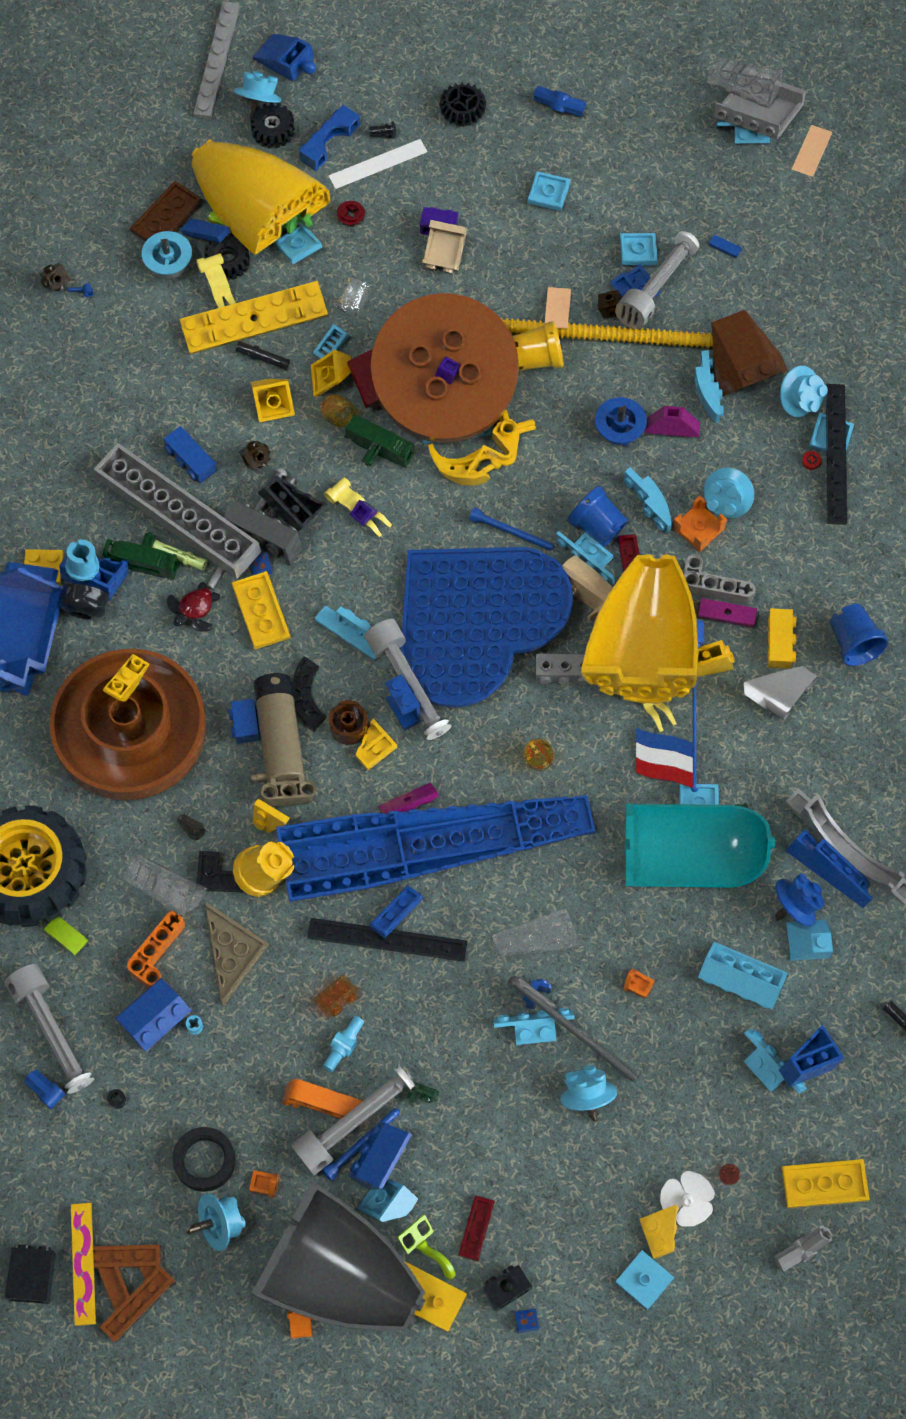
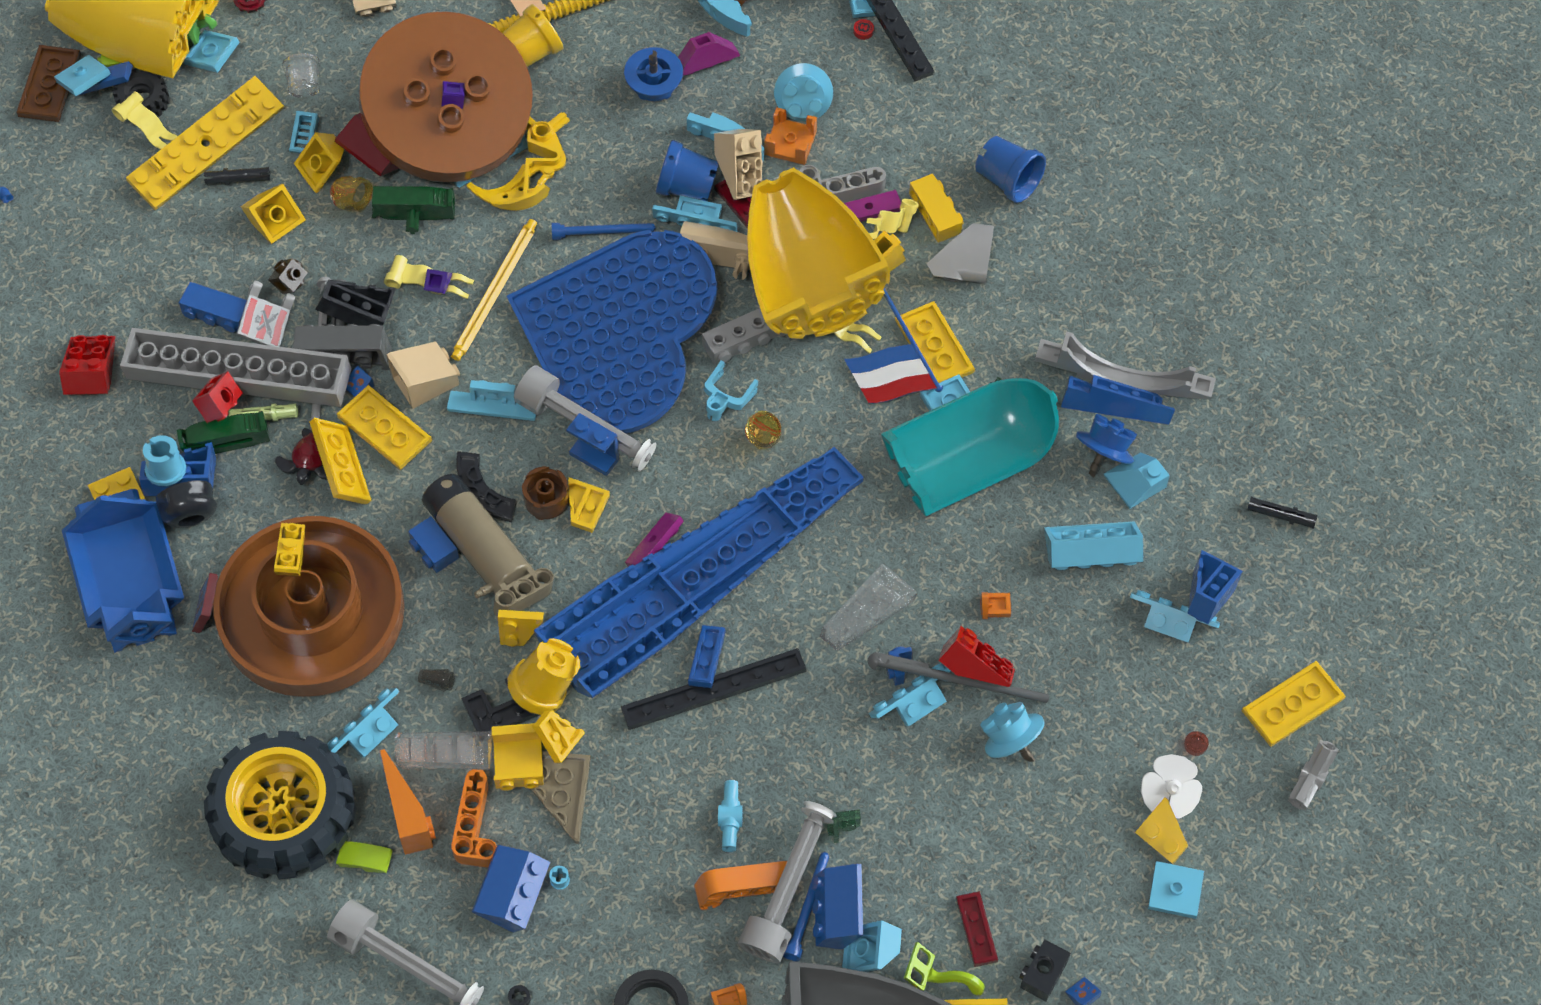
camera: 30 degrees left, 5 degrees down
(56, 684) = (205, 603): none -> dark red tile
(74, 455) = (88, 365): none -> red slope
(109, 926) = (413, 826): none -> orange slope
(121, 840) = (369, 728): none -> medium azure bracket
(147, 529) = (217, 397): none -> red brick
(167, 254) = (74, 120): medium azure piece -> none
(190, 221) = (82, 75): none -> medium azure plate
(212, 622) = (340, 461): none -> yellow plate
(214, 918) = (517, 757): none -> yellow panel
(218, 482) = (264, 320): none -> flag
(250, 916) = (557, 735): none -> yellow wing
(311, 581) = (422, 372): none -> tan slope
(336, 996) = (693, 771): clear orange bracket -> none
(403, 539) = (494, 290): none -> yellow piece
(521, 715) = (720, 401): none -> medium azure piece
(594, 1021) = (974, 660): none -> red slope
(644, 526) = (739, 159): none -> tan slope
(715, 749) = (936, 342): none -> yellow tile
(733, 635) = (894, 221): none -> light yellow flag

